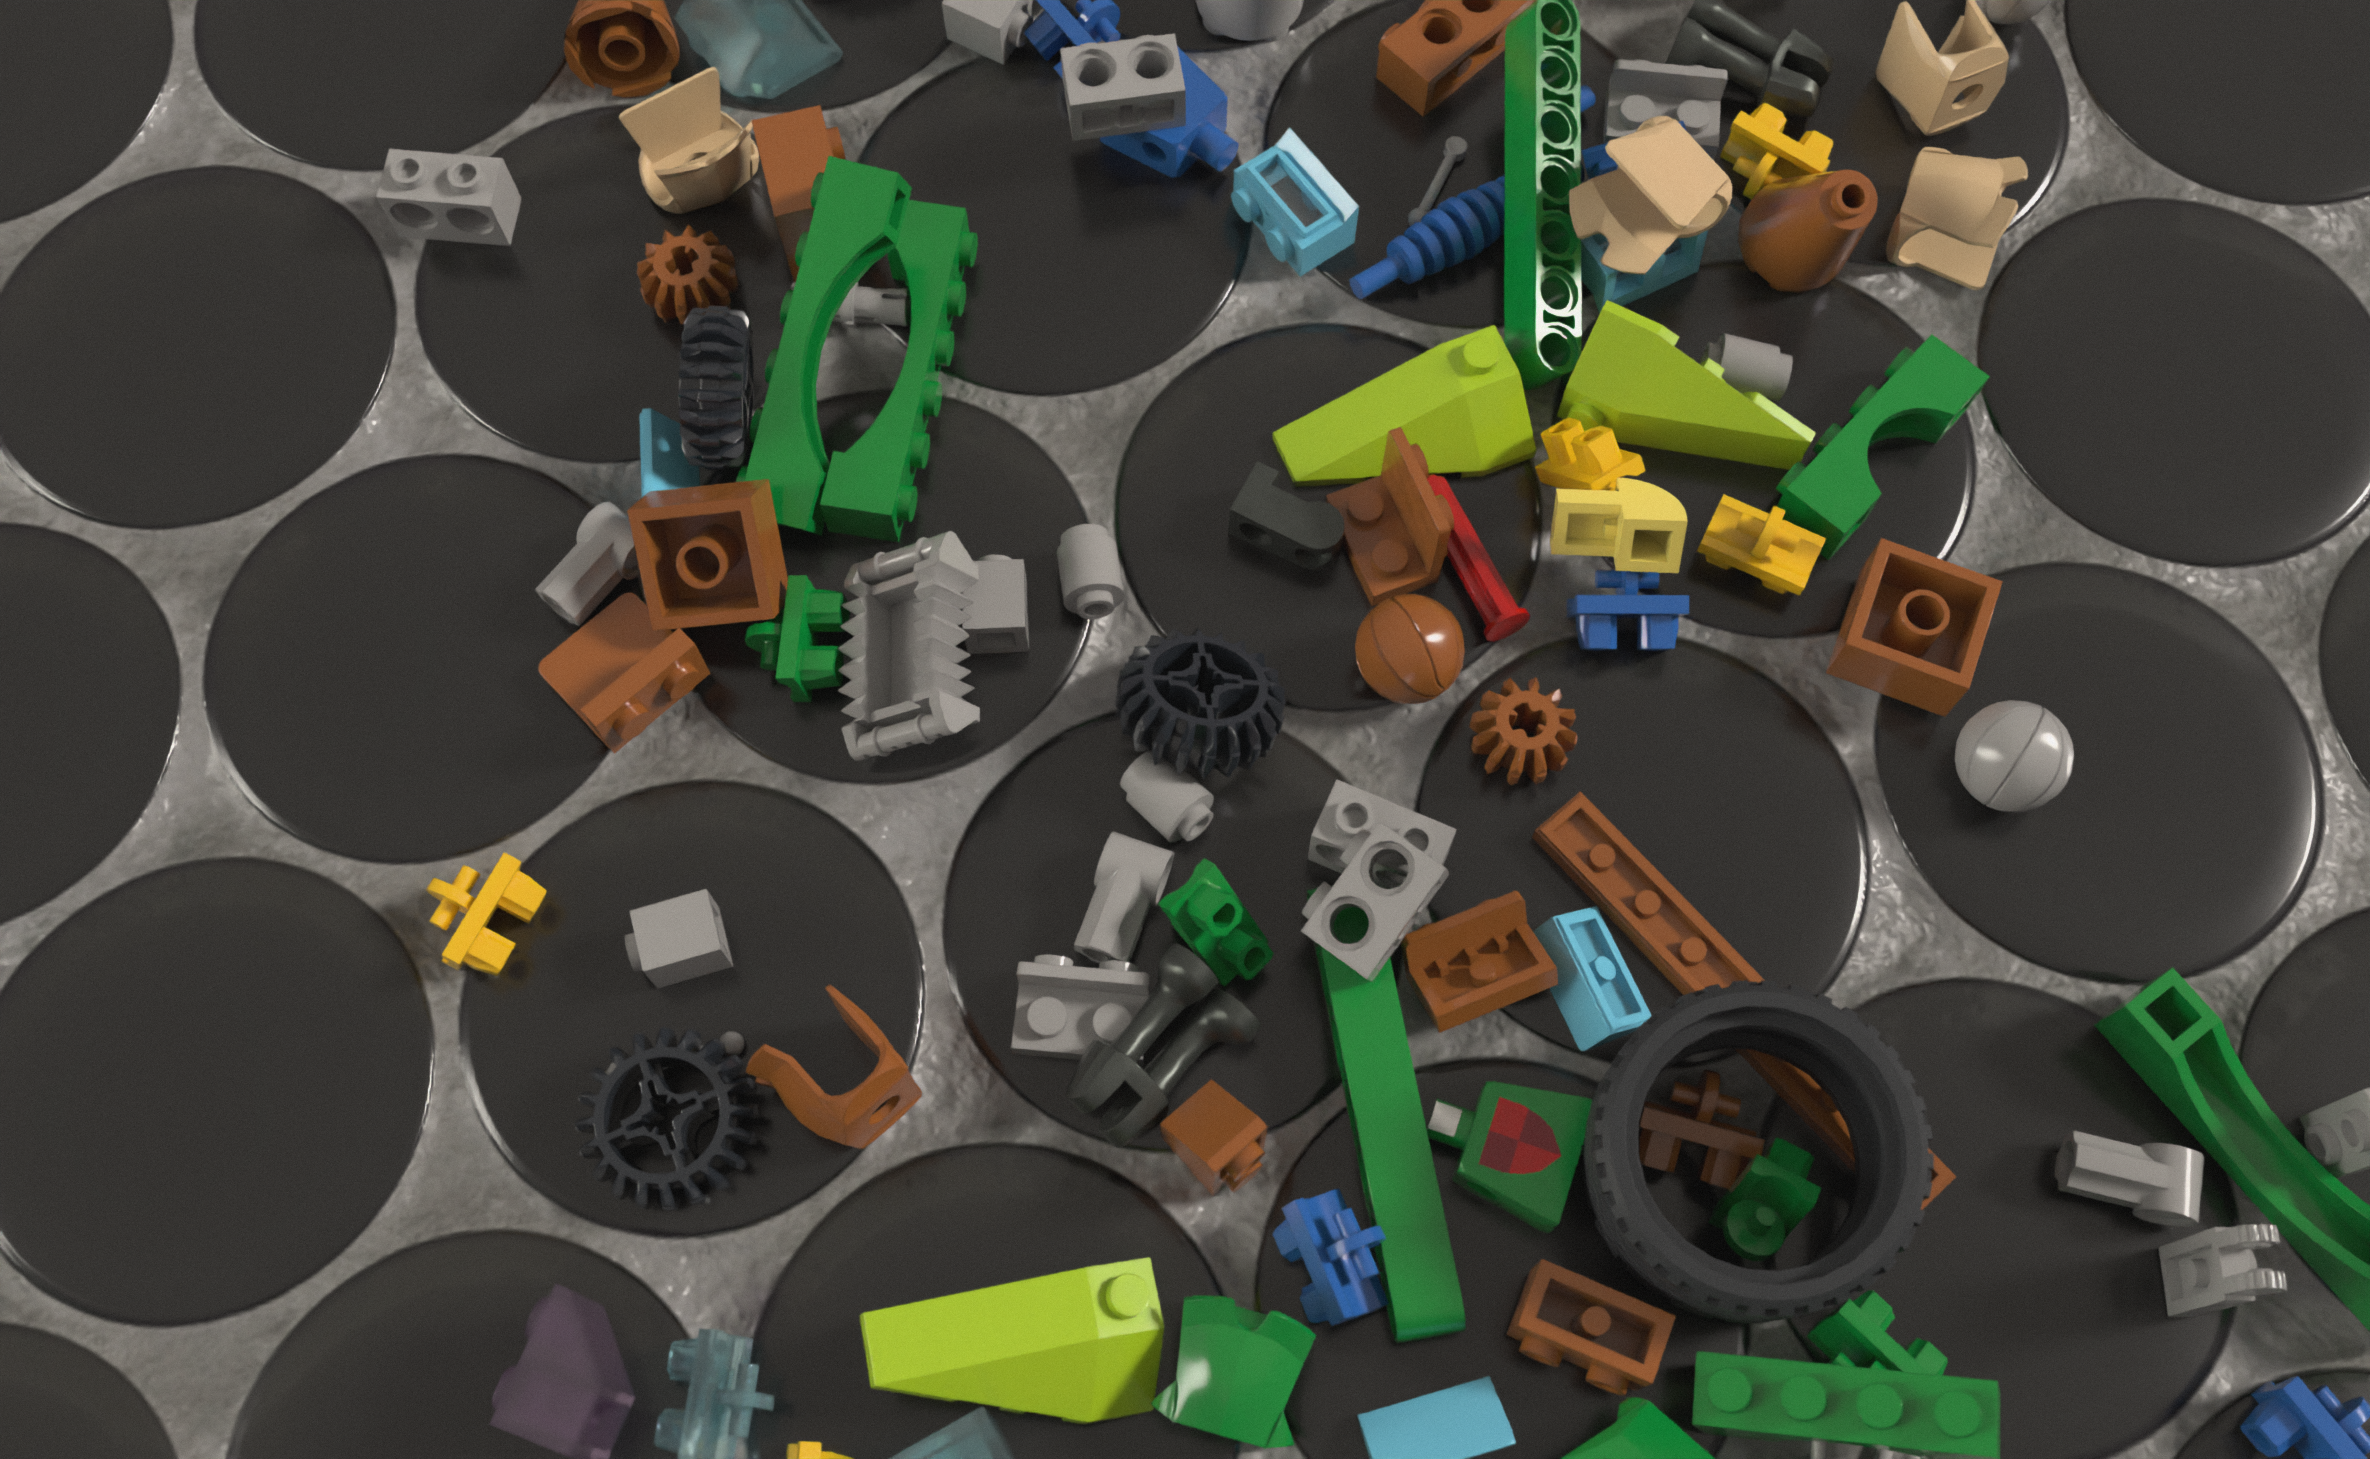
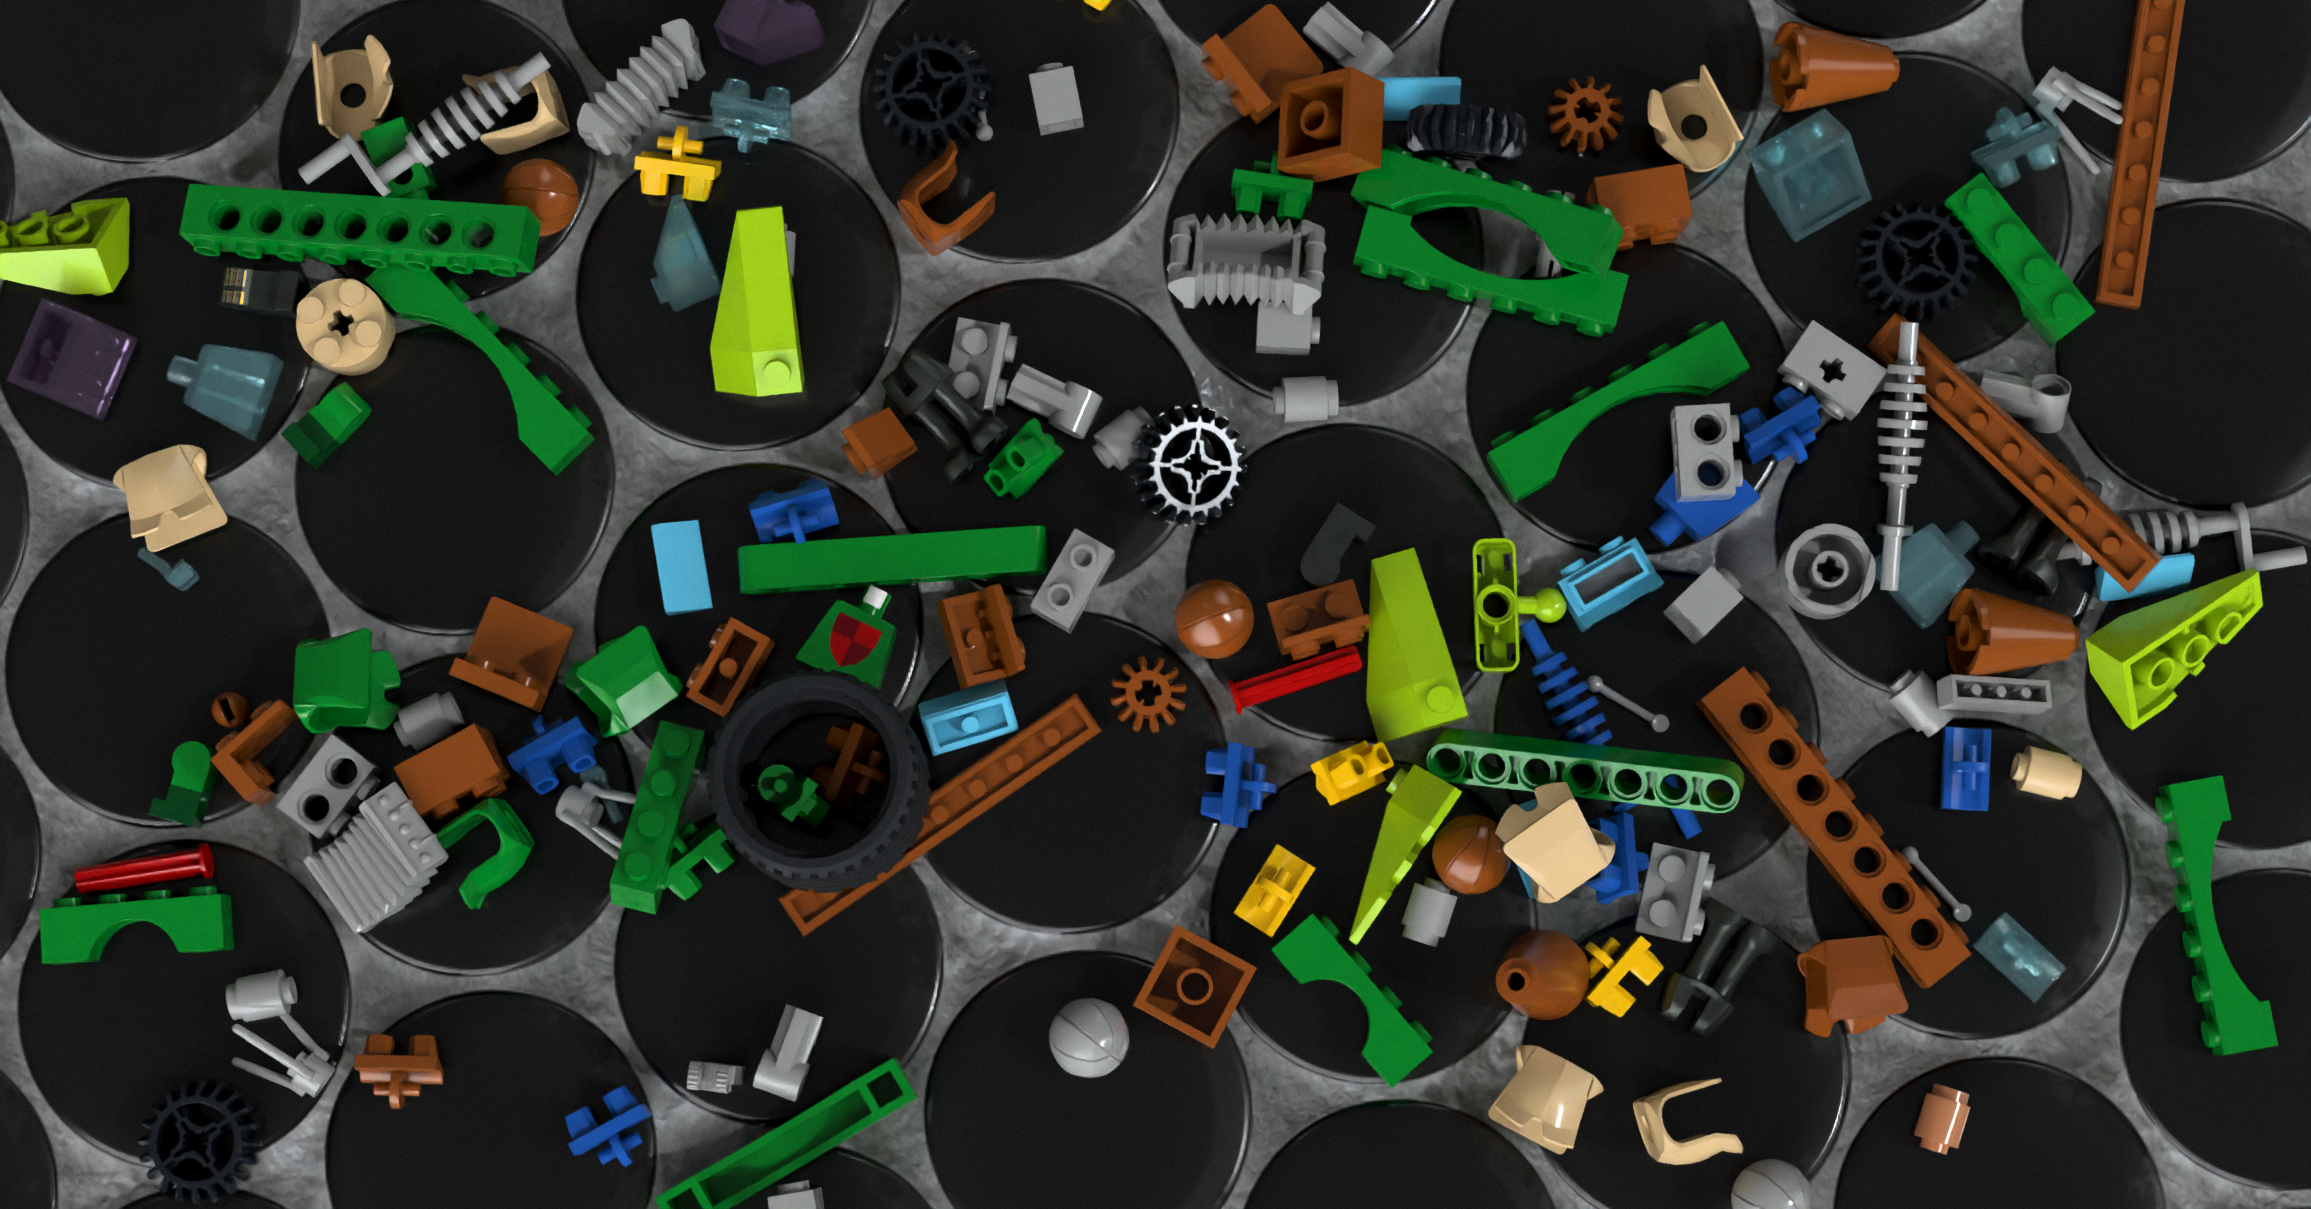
camera: 100 degrees right, 15 degrees up
(1137, 292) = (1696, 367): none -> green arch
(1235, 1371) = (728, 441): green piece -> none
(1310, 85) = (1704, 603): none -> light grey brick
(1356, 307) = (1547, 605): none -> lime piece
(1388, 910) = (1011, 564): light grey brick -> none
(1633, 524) = (1285, 788): light yellow brick -> none
(1679, 301) = (1470, 855): none -> dark orange piece

